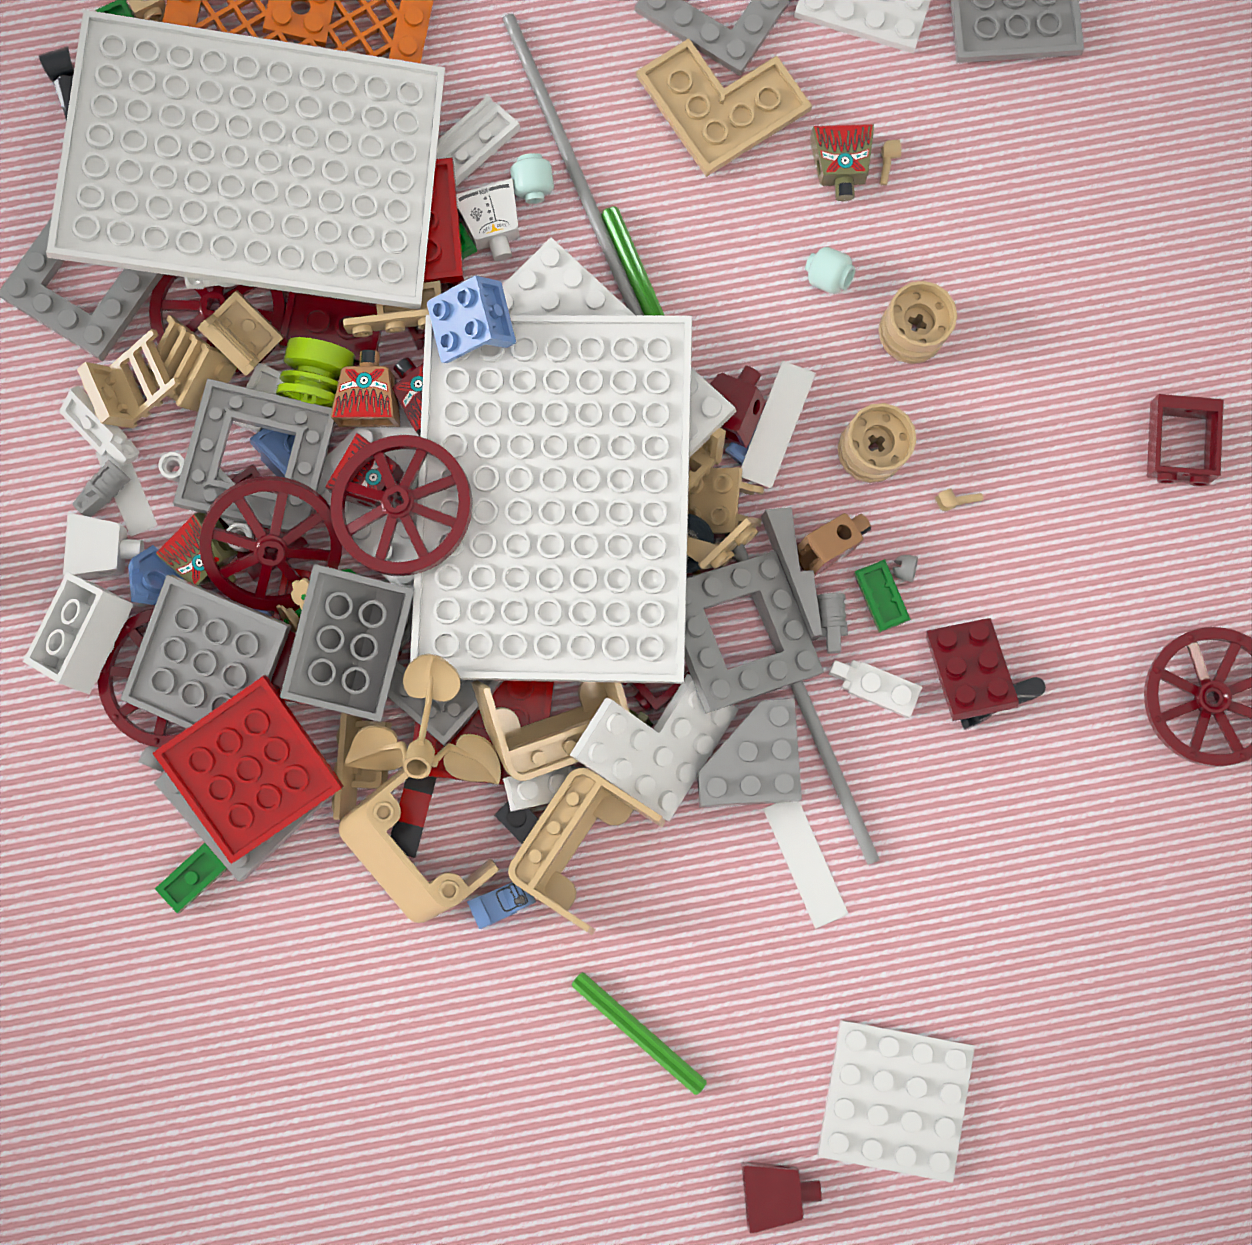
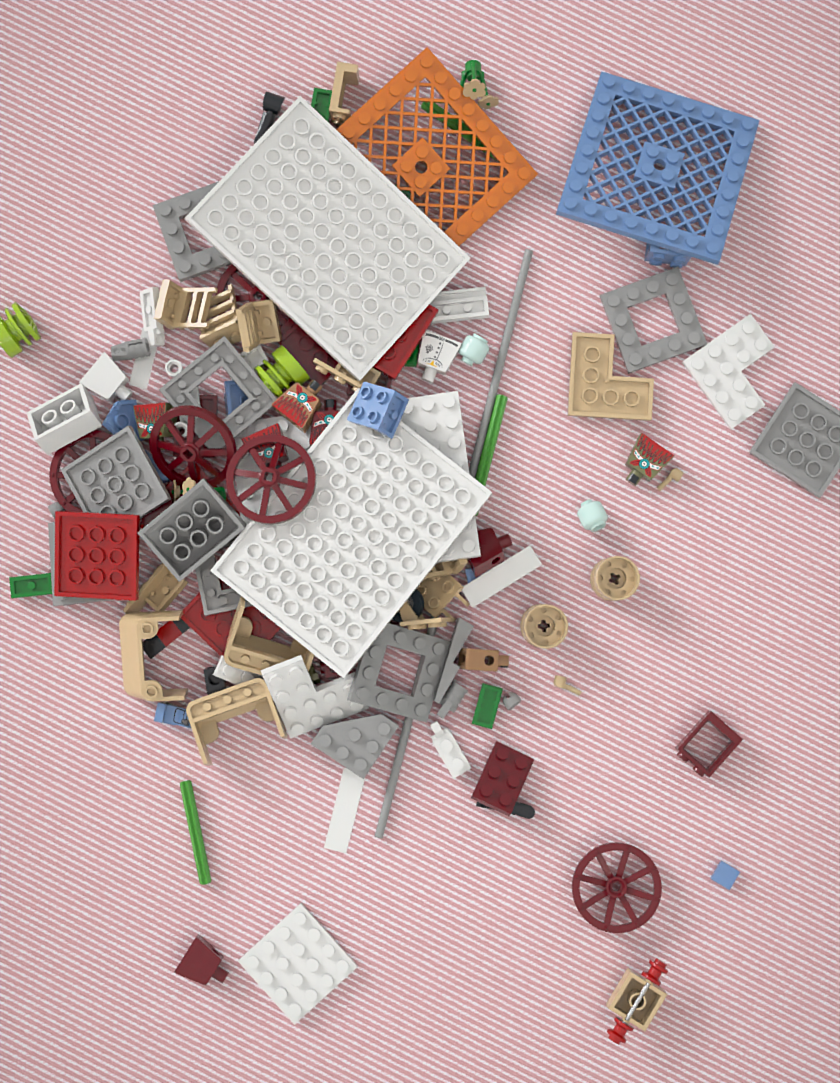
camera: 45 degrees right, 5 degrees up
(379, 749) = (211, 631): tan plant -> none

